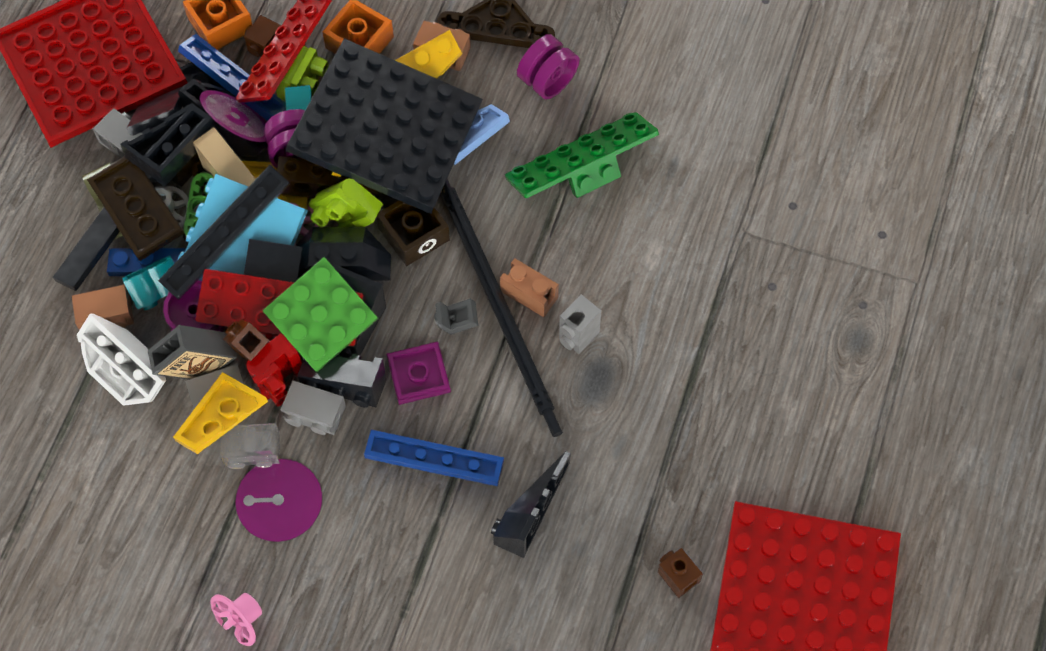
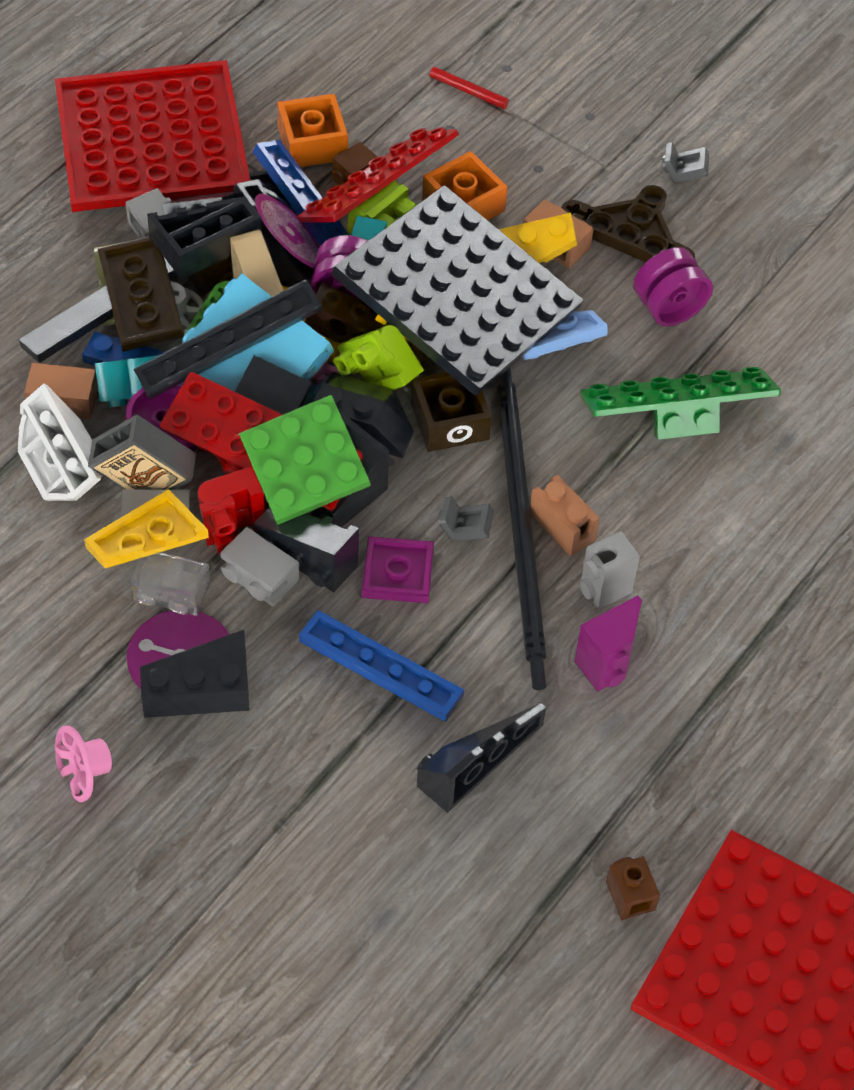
camera: 15 degrees right, 10 degrees down
(245, 339) = (207, 459): reddish brown brick -> none
(302, 518) = (198, 680): none -> black wedge
(599, 386) = (607, 644): none -> magenta slope

